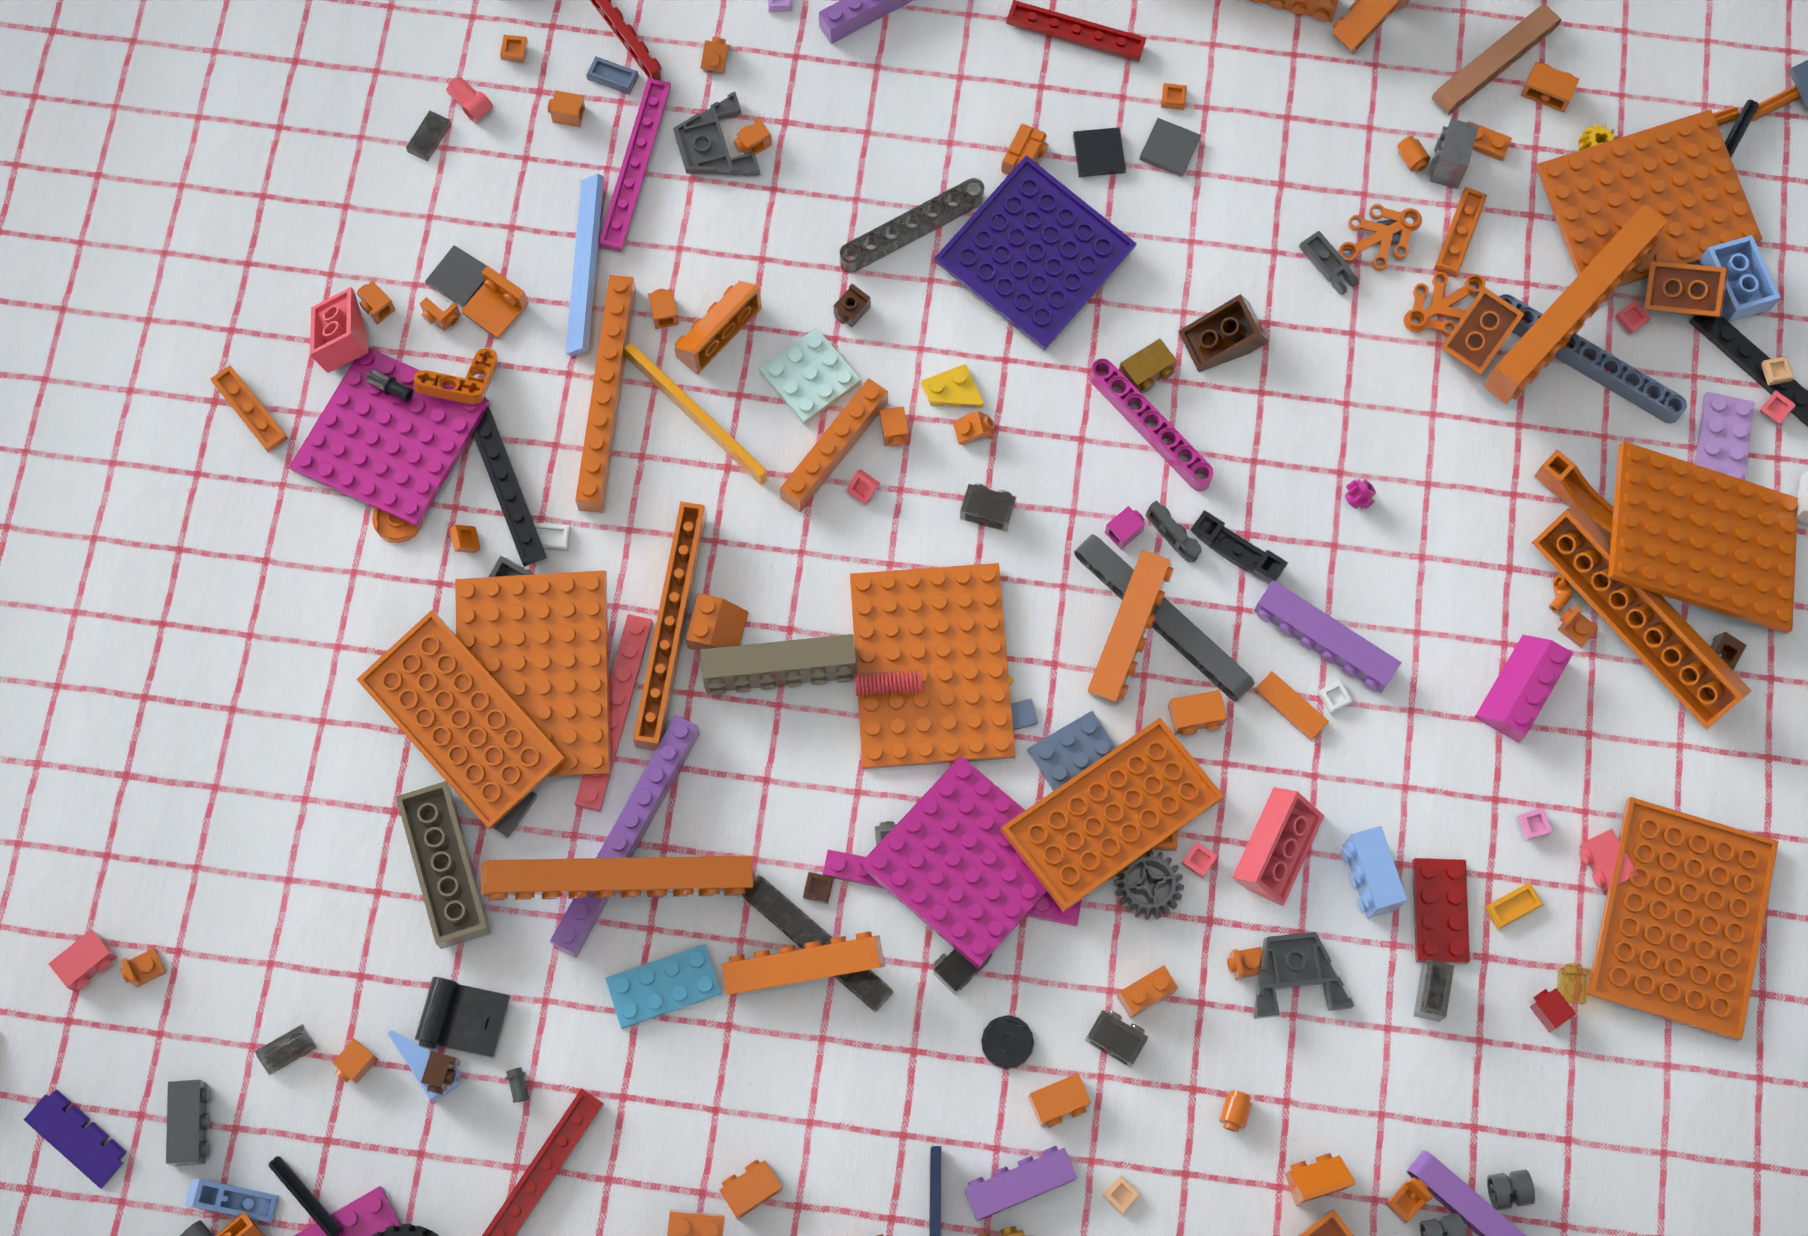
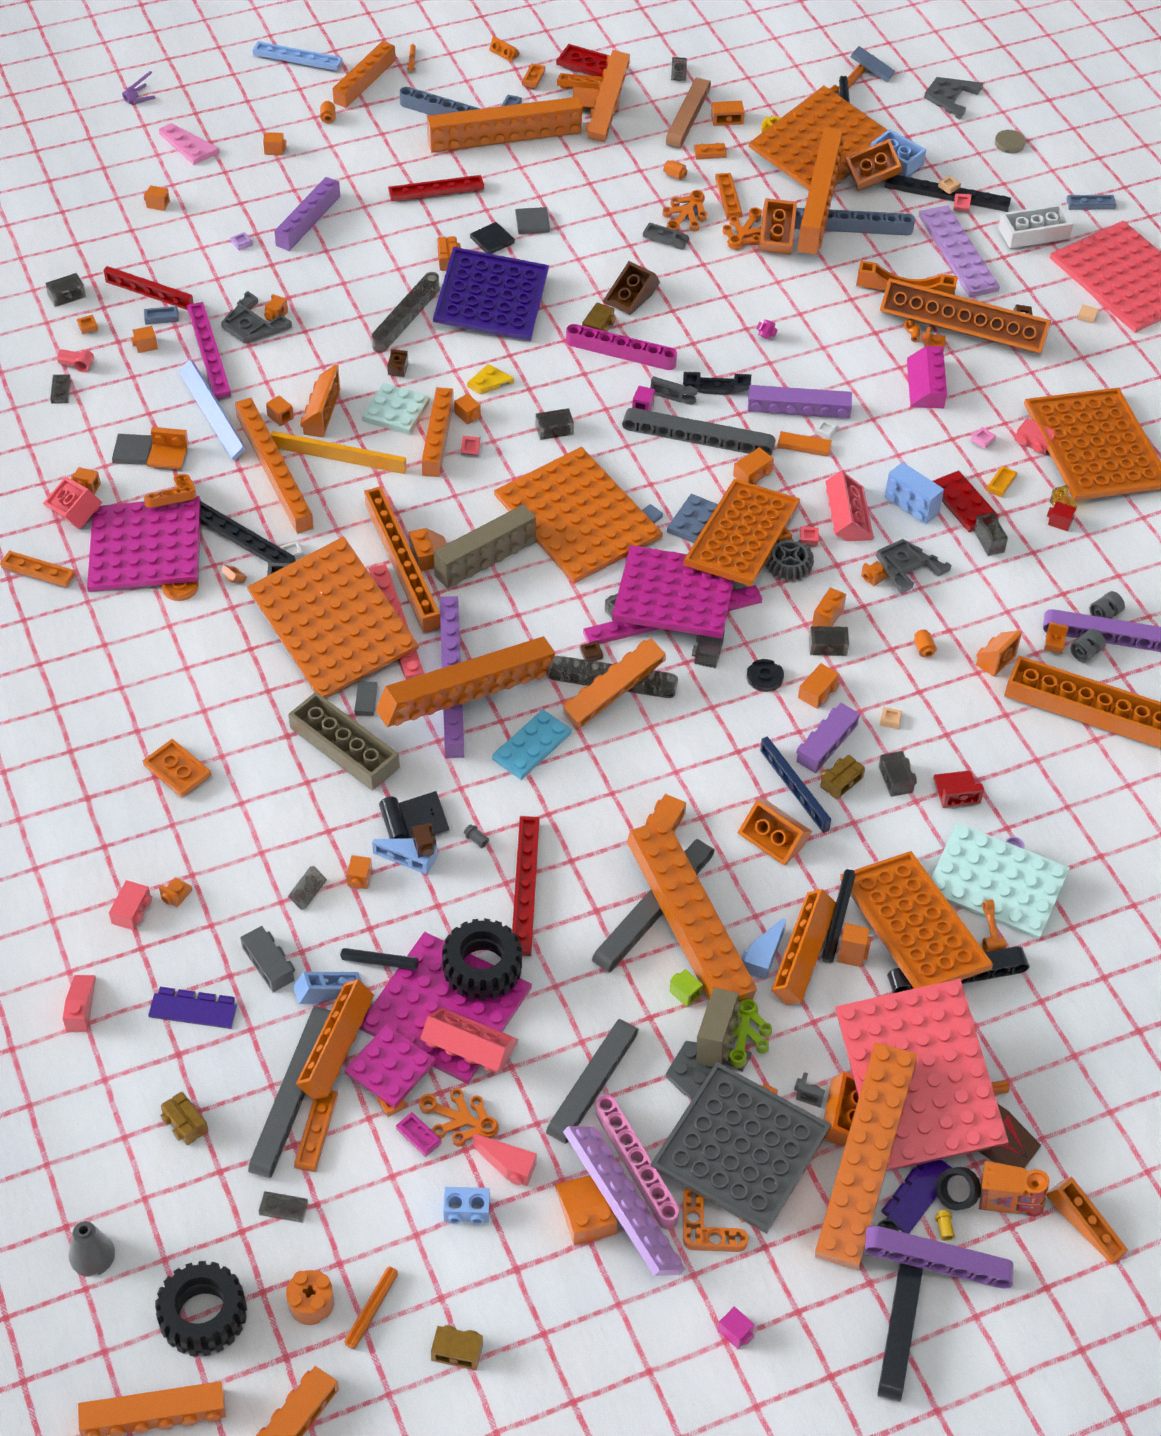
camera: 30 degrees left, 20 degrees down
(241, 793) = (177, 768): none -> orange plate
(389, 385) = (129, 512): black axle -> none
(434, 314) = (133, 471): orange bracket -> none
(461, 719) = (302, 656): orange plate -> none
(715, 55) = (221, 279): orange bracket -> none
(898, 682) = (560, 527): coral piece -> none
(973, 427) = (515, 391): orange bracket -> none
(1130, 626) = (684, 439): orange brick -> none
(1173, 96) = (516, 197): orange tile -> none
(1453, 153) = (698, 157): flat silver brick -> none
(1632, 317) = (853, 194): coral plate -> none
(1704, 538) = (971, 265): orange plate -> none

